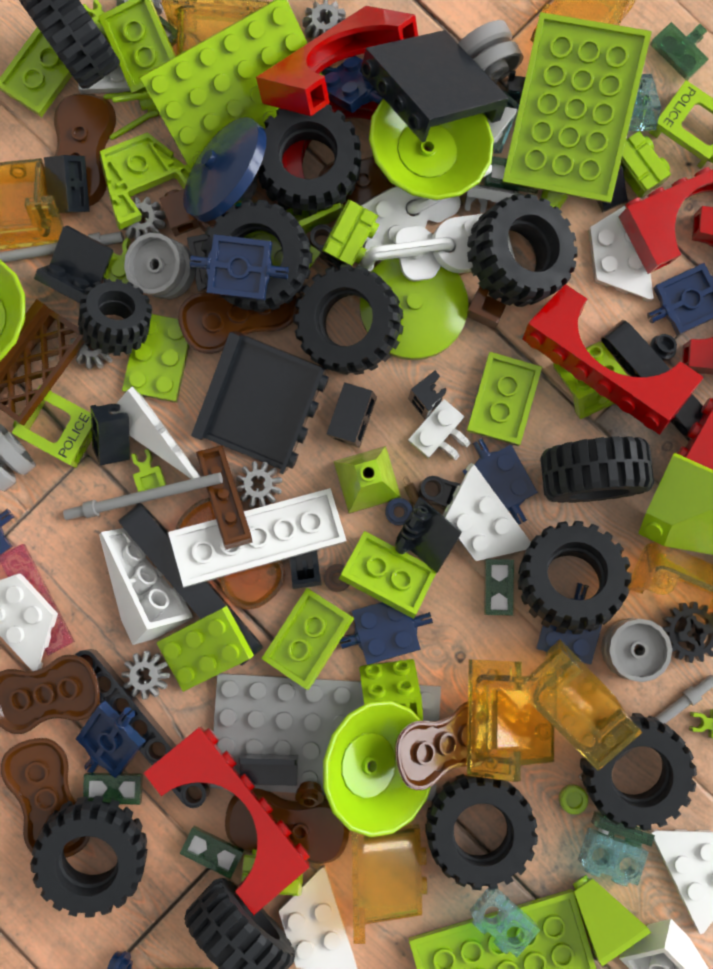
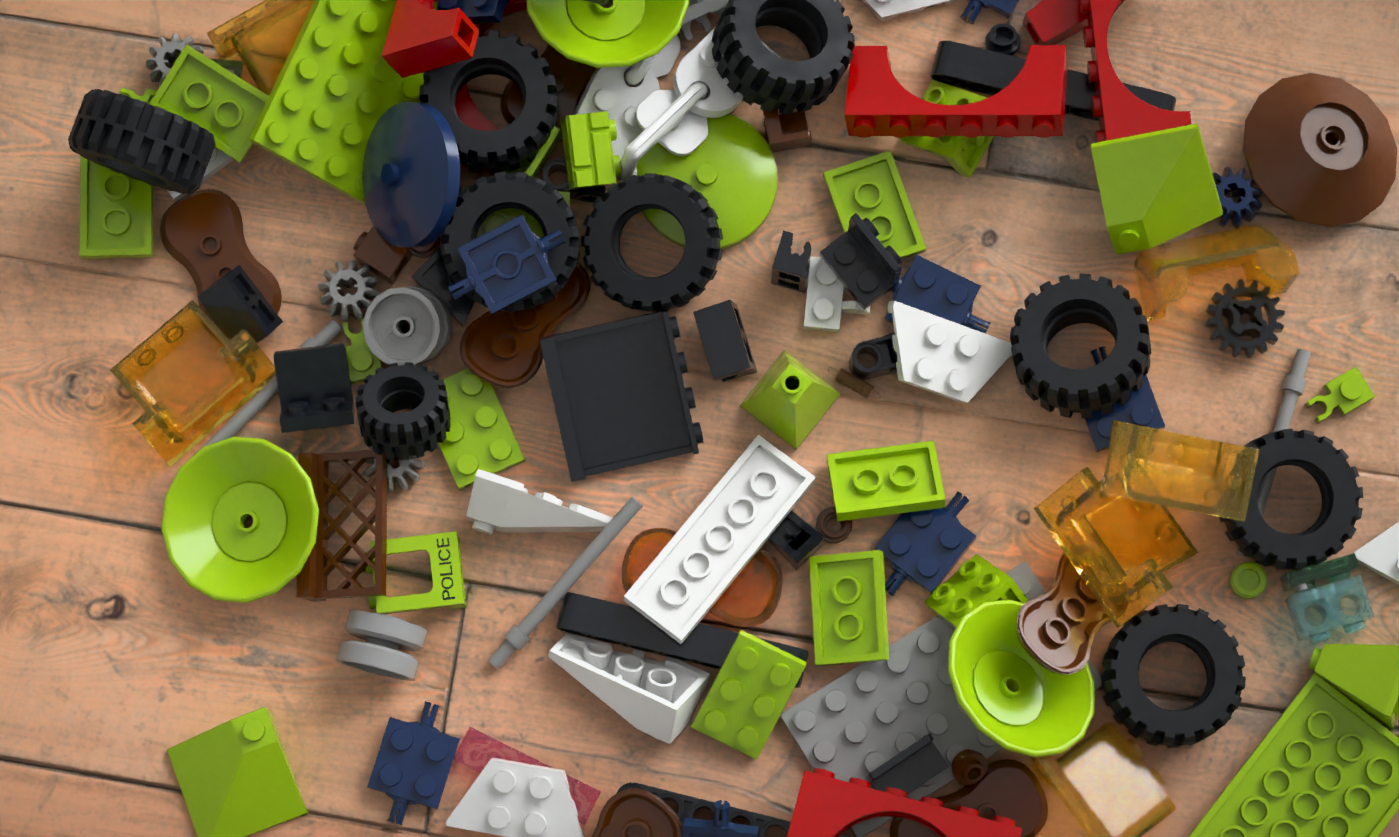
camera: 30 degrees left, 5 degrees down
(110, 434) = (484, 540): black hinge -> none
(136, 168) = (303, 238): lime wing -> none
(136, 676) = (713, 760): light grey gear -> none
(145, 104) = (256, 160): lime plant -> none
(149, 476) = (554, 559): lime plate -> none
(224, 499) = (656, 521): reddish brown tile -> none
(249, 485) = (667, 489): light grey gear -> none
(389, 511) = (854, 399): dark blue plate -> none
(427, 535) = (897, 410): black hinge -> none
(472, 425) = (863, 262): none -> black bracket
(499, 587) = (1011, 413): clear green piece -> none
(508, 916) = (1262, 740): clear light blue brick -> none
(597, 469) = (1024, 217): black tyre -> none
(651, 656) = (1220, 380): light grey wheel -> none

